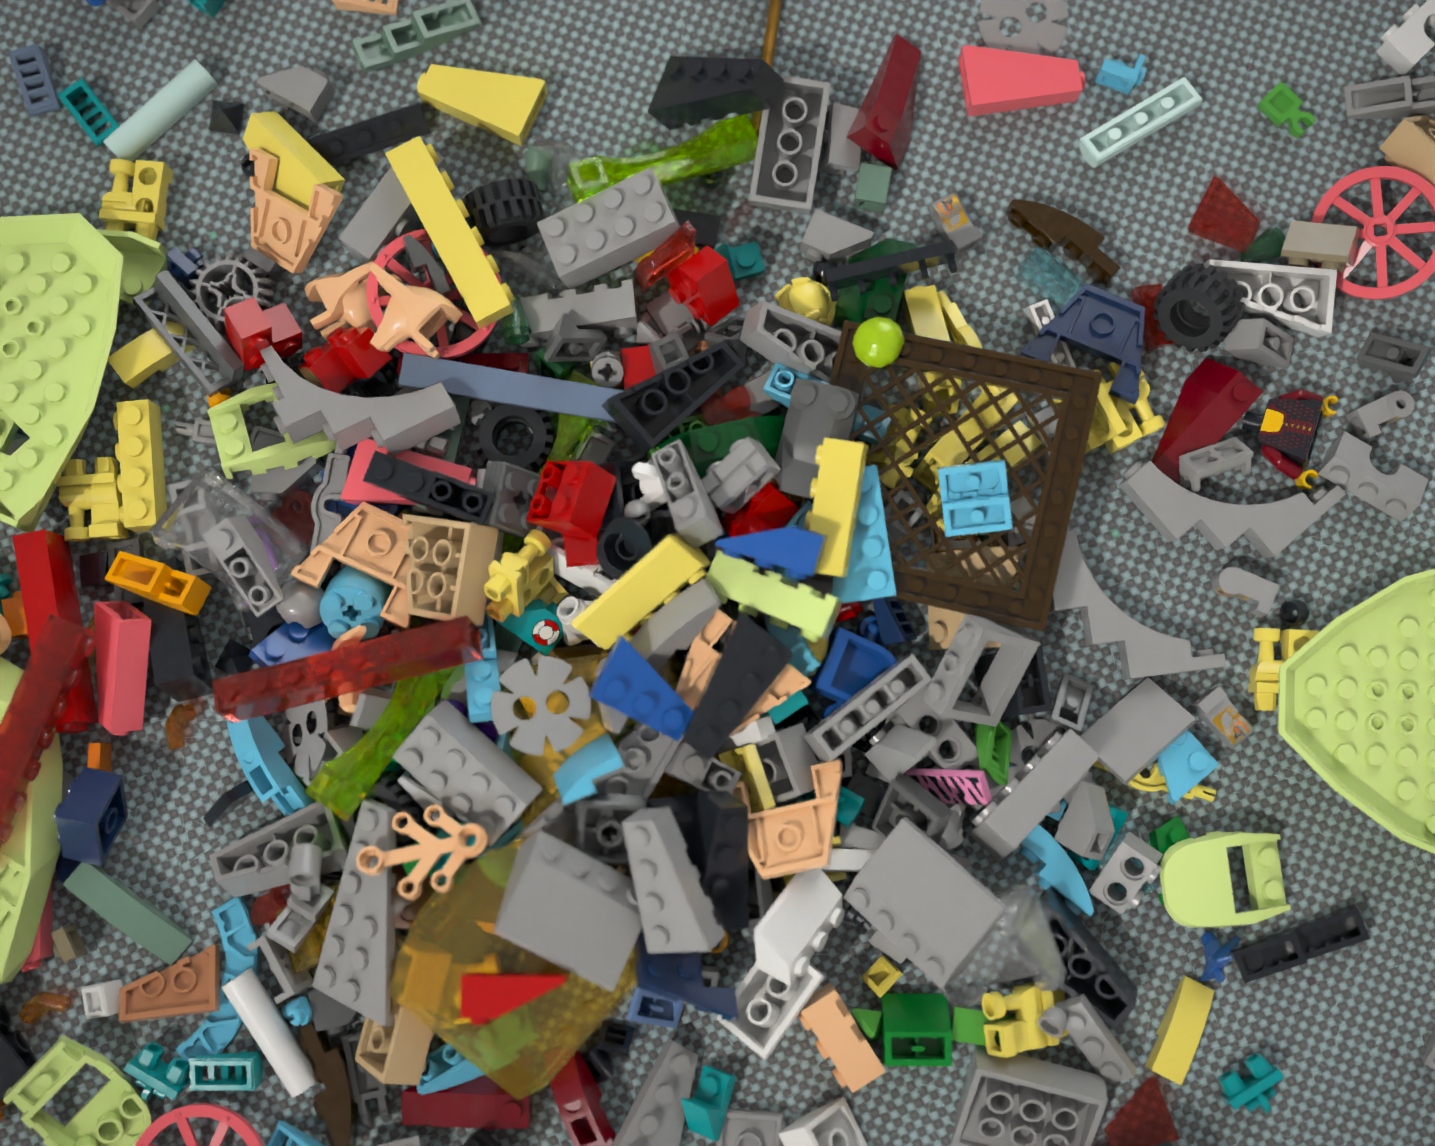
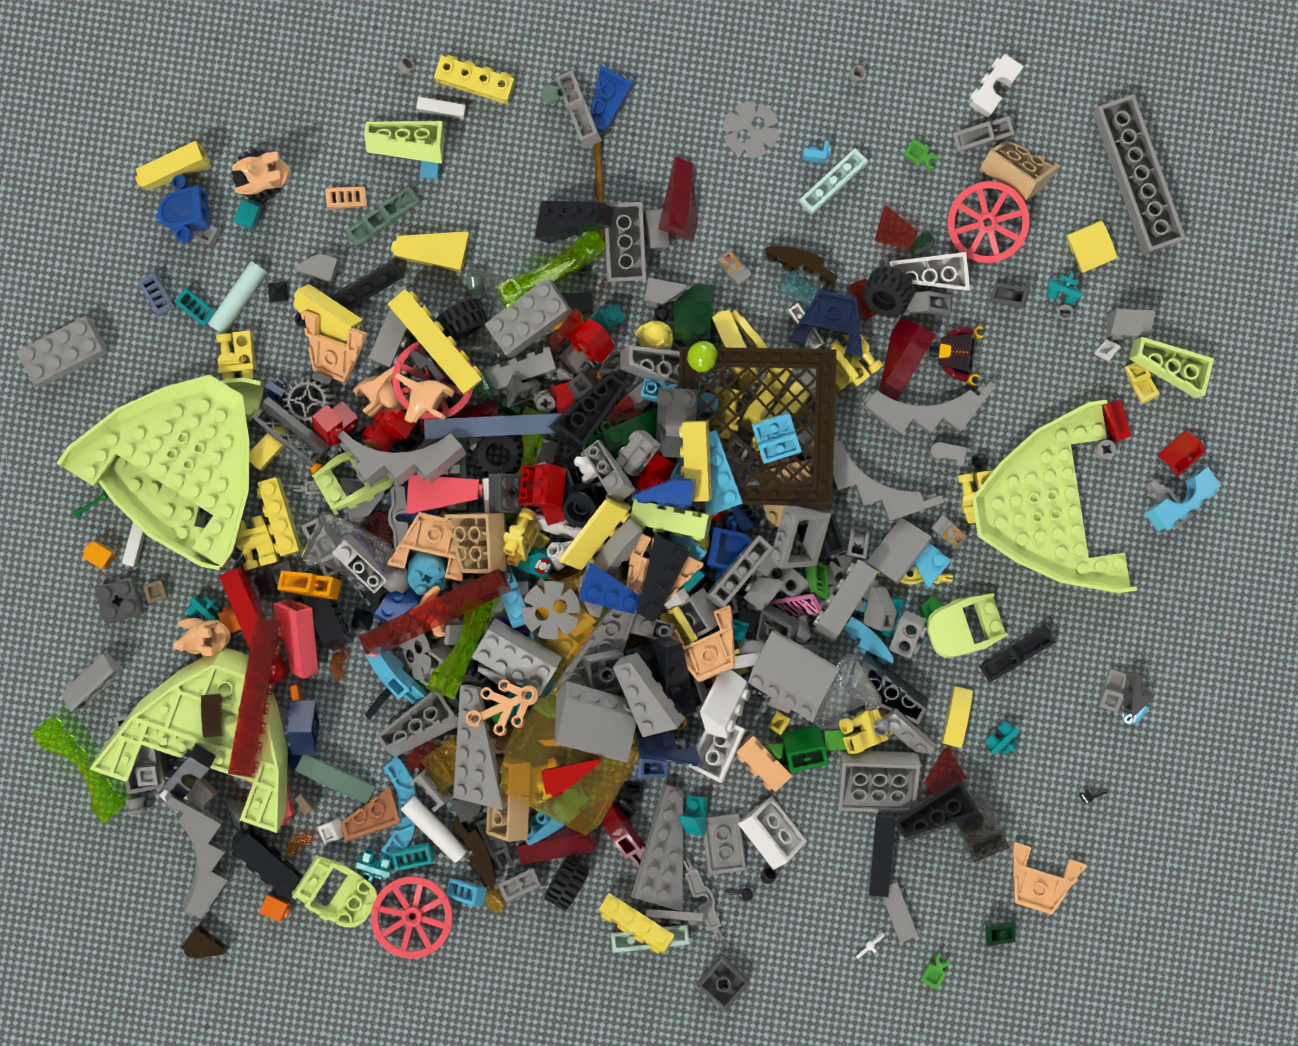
camera: 15 degrees left, 5 degrees up
(299, 919) = (437, 757): light grey slope -> none
(299, 1010) = (449, 812): medium azure arm -> none
(305, 871) = (436, 732): light grey piece -> none
(429, 488) = (458, 497): black slope -> none
(587, 763) = (584, 638): medium azure slope -> none
(637, 508) = (581, 484): light grey hinge -> none
(872, 186) = (679, 255): sand green brick -> none
(891, 266) = (700, 306): black hinge -> none
(1016, 80) = (752, 171): coral slope -> none
(1213, 461) = (914, 381): light grey hinge -> none
(1216, 957) = (970, 671): blue piece -> none
(1321, 244) = (954, 237): slope -> none
(1350, 467) = (996, 369): light grey arch -> none
(1388, 409) = (1014, 326): light grey leg -> none

